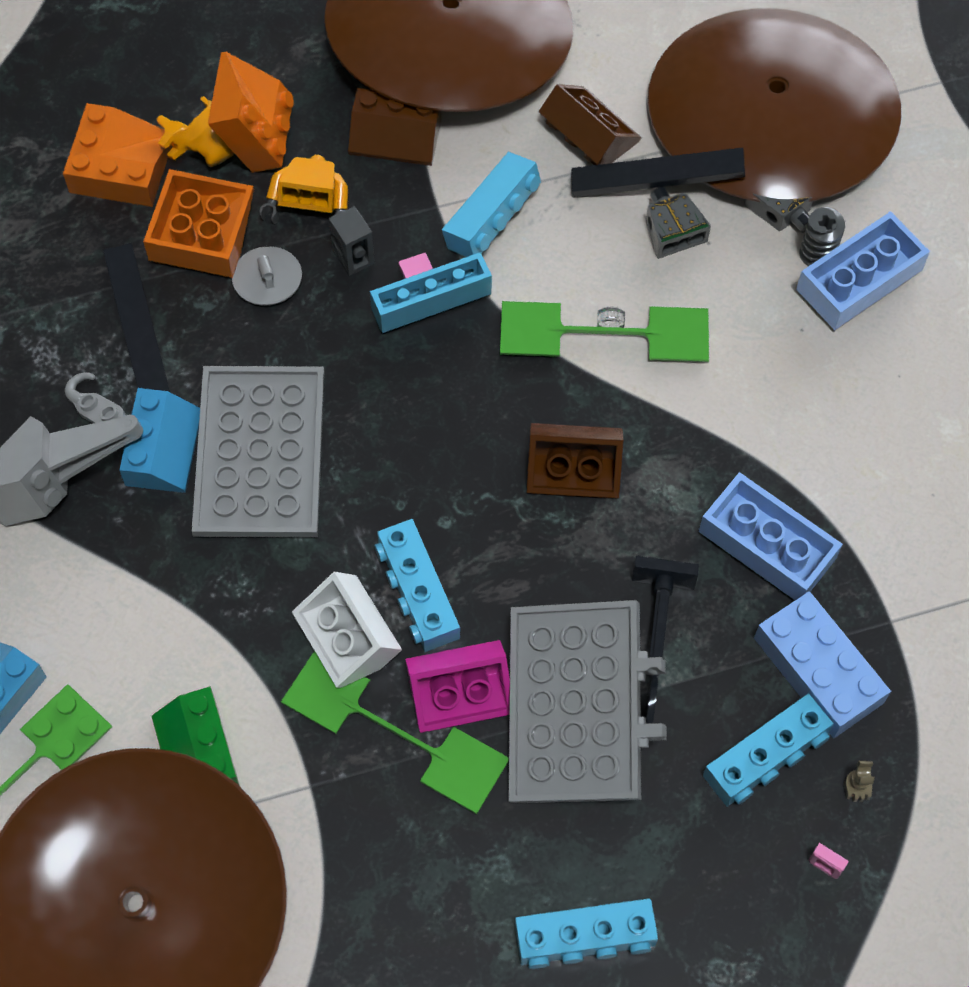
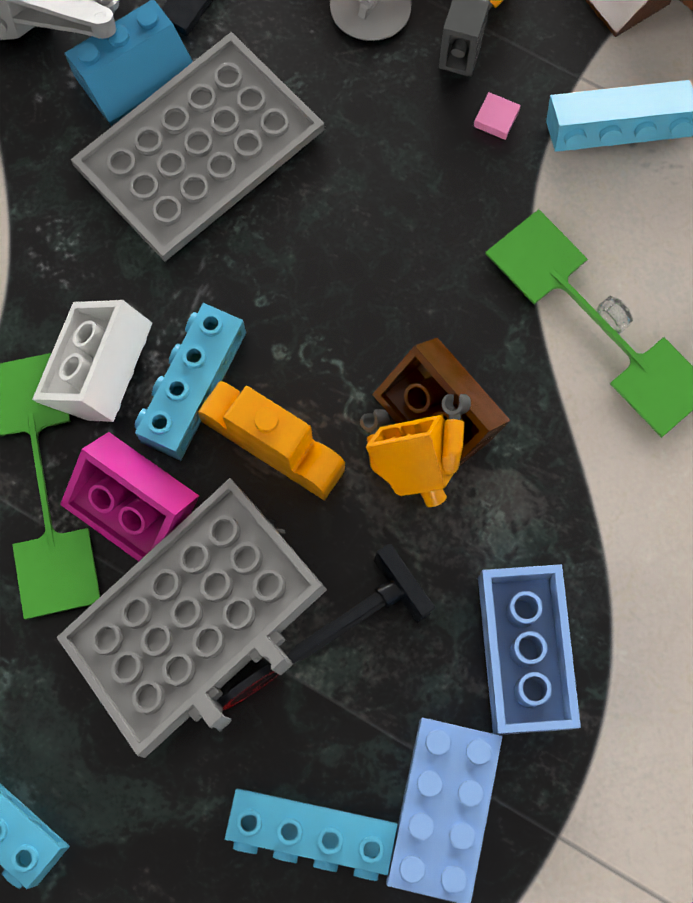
camera: 50 degrees right, 10 degrees up
(431, 292) = (481, 142): medium azure brick -> none
(503, 565) = (272, 437): none -> light orange brick
(595, 493) = (417, 453): none -> light orange torso

